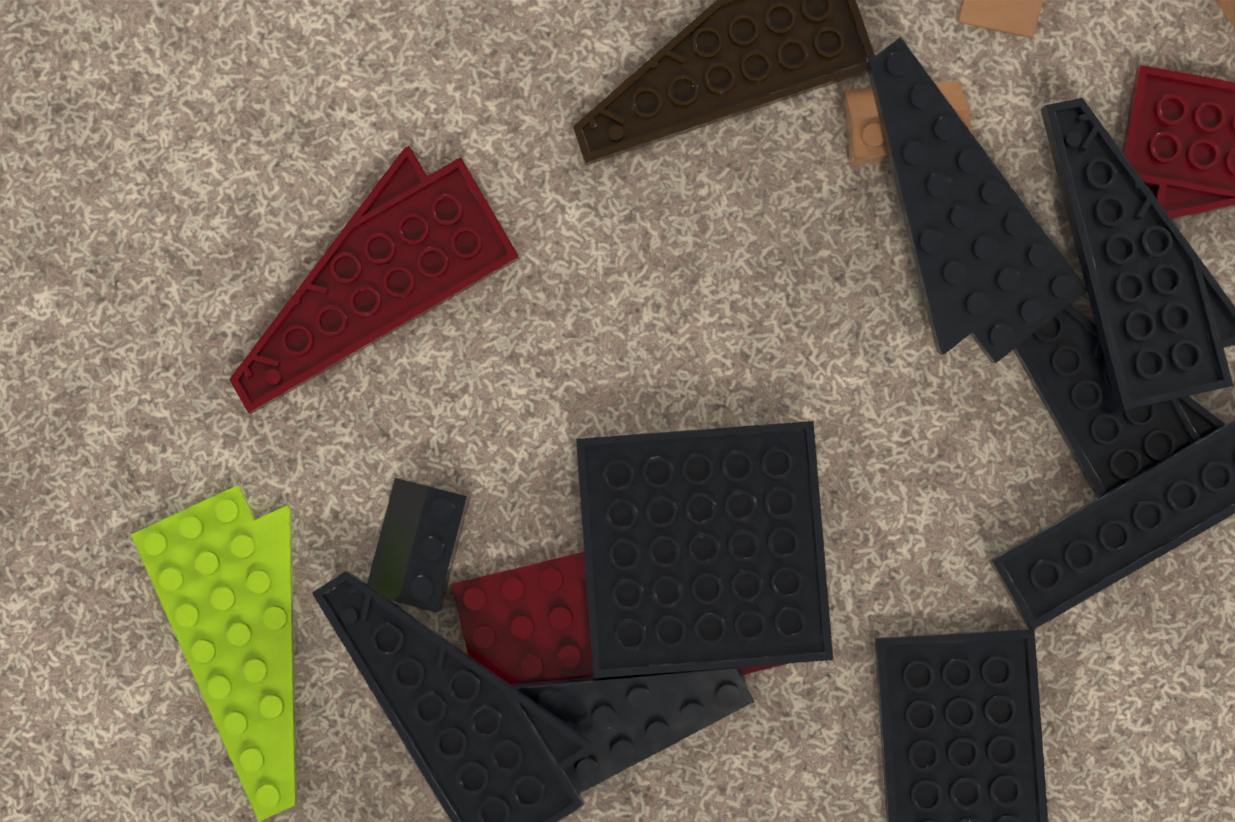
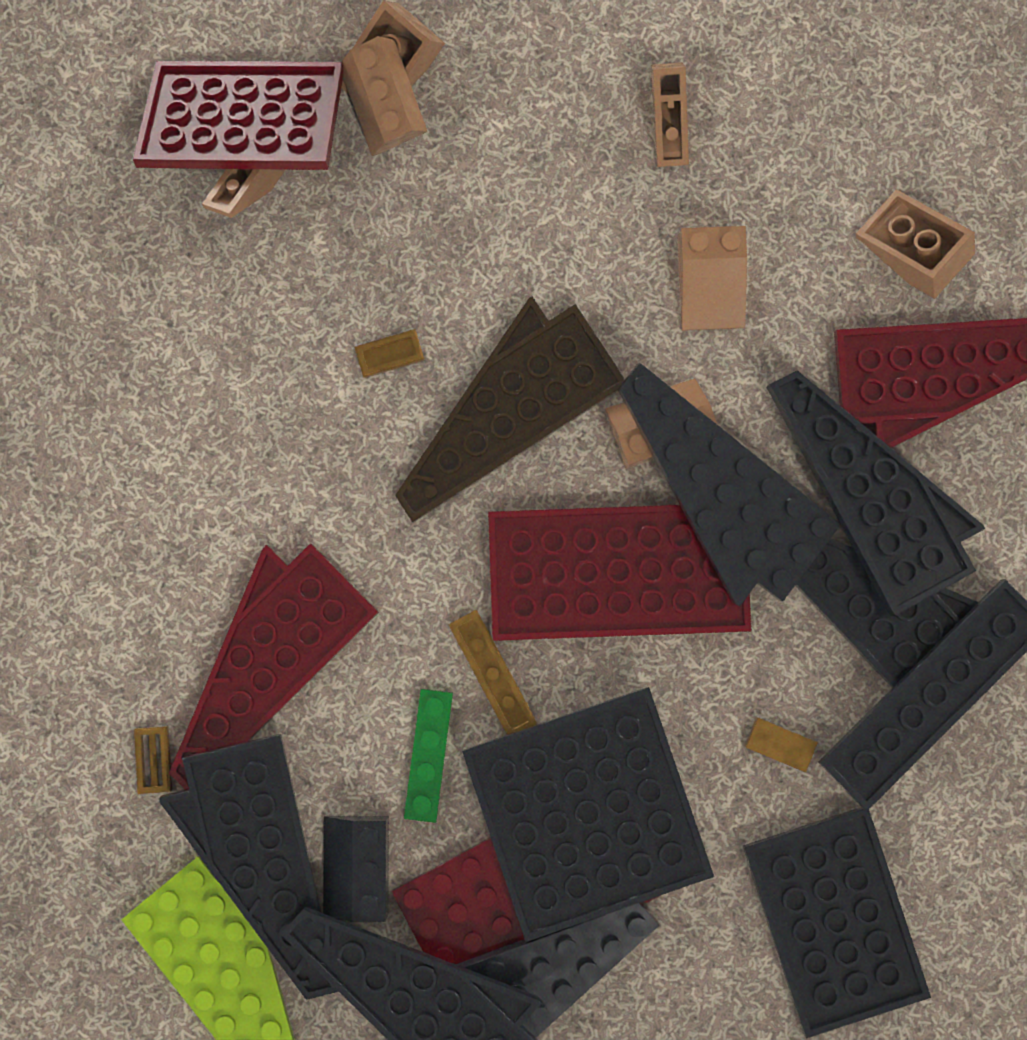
camera: 20 degrees left, 0 degrees up
(222, 395) = (165, 759): none -> pearl gold tile
(306, 479) = (252, 839): none -> black wing
(534, 438) = (428, 755): none -> green plate
(633, 360) = (492, 673): none -> pearl gold tile
(794, 282) = (604, 575): none -> dark red plate
(950, 532) = (781, 744): none -> pearl gold tile

